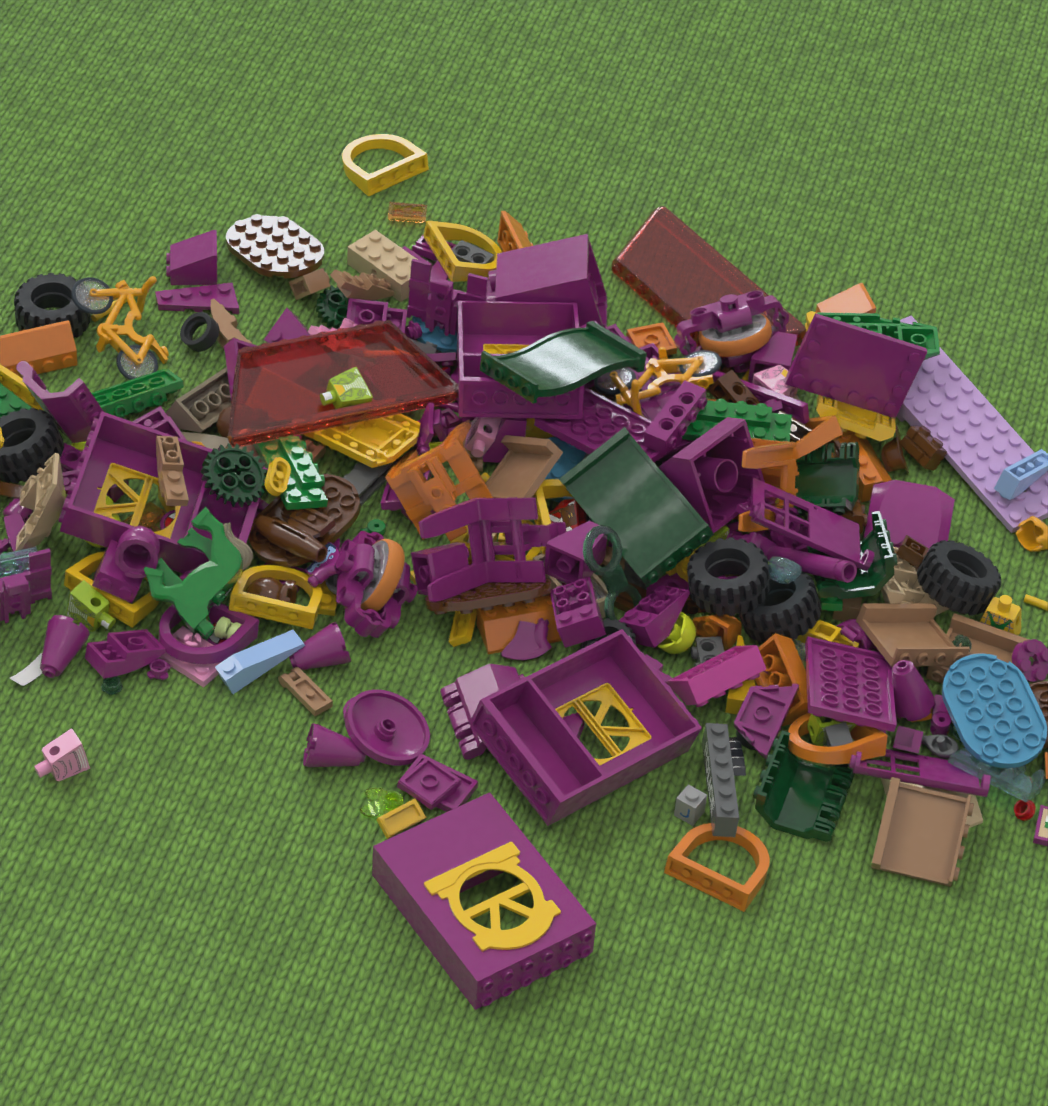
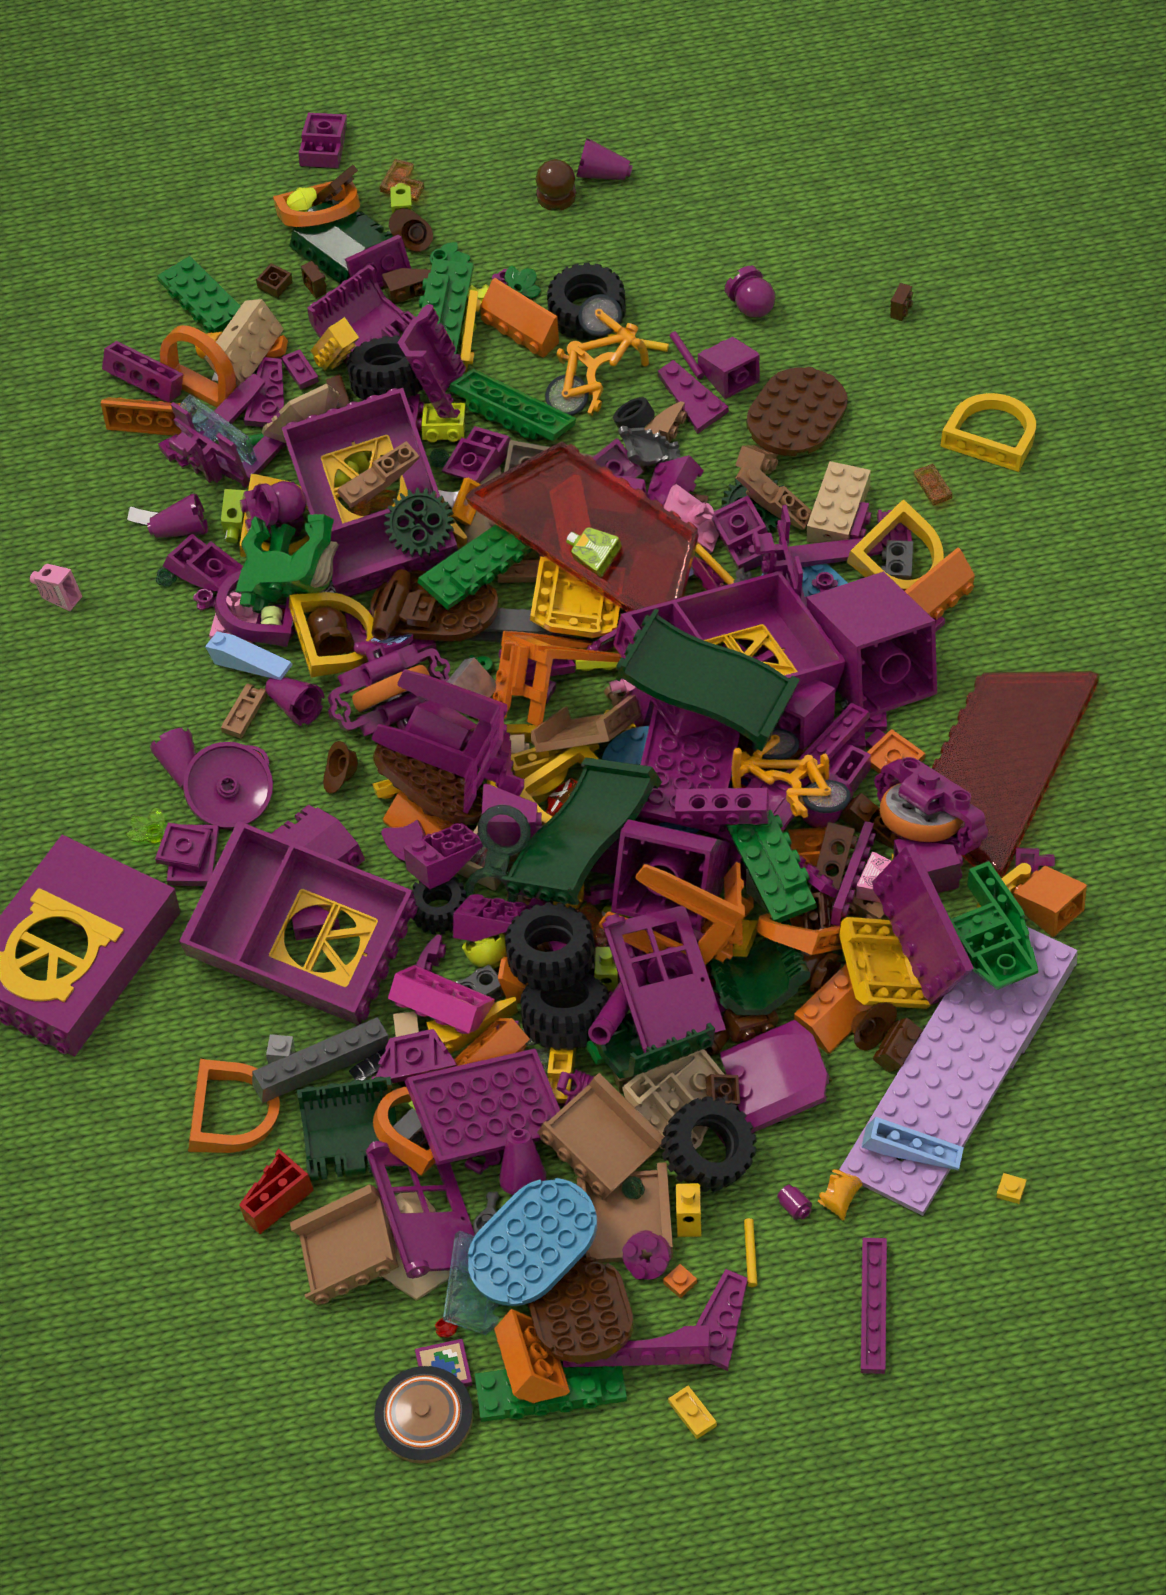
camera: 70 degrees right, 10 degrees up
(136, 217) = (751, 292): none -> magenta tile
(159, 284) = (687, 355): none -> magenta bar
(215, 149) = (901, 302): none -> reddish brown piece
(242, 330) = (647, 448): none -> dark grey animal
(277, 481) = (438, 551): yellow plate -> none
(401, 818) = (136, 847): yellow tile -> none
(402, 533) = (473, 677): none -> flat silver piece
(413, 330) = (756, 568): magenta plate -> none
(419, 652) = (340, 766): none -> reddish brown piece
(721, 714) = (405, 1023): none -> tan brick
(783, 570) = (581, 984): clear light blue piece -> none
(800, 310) = (1032, 857): none -> magenta plate
(832, 861) = (275, 1193): none -> red wedge
(908, 739) = (473, 1195): magenta panel -> none
(1027, 563) = (794, 1202): none -> magenta brick

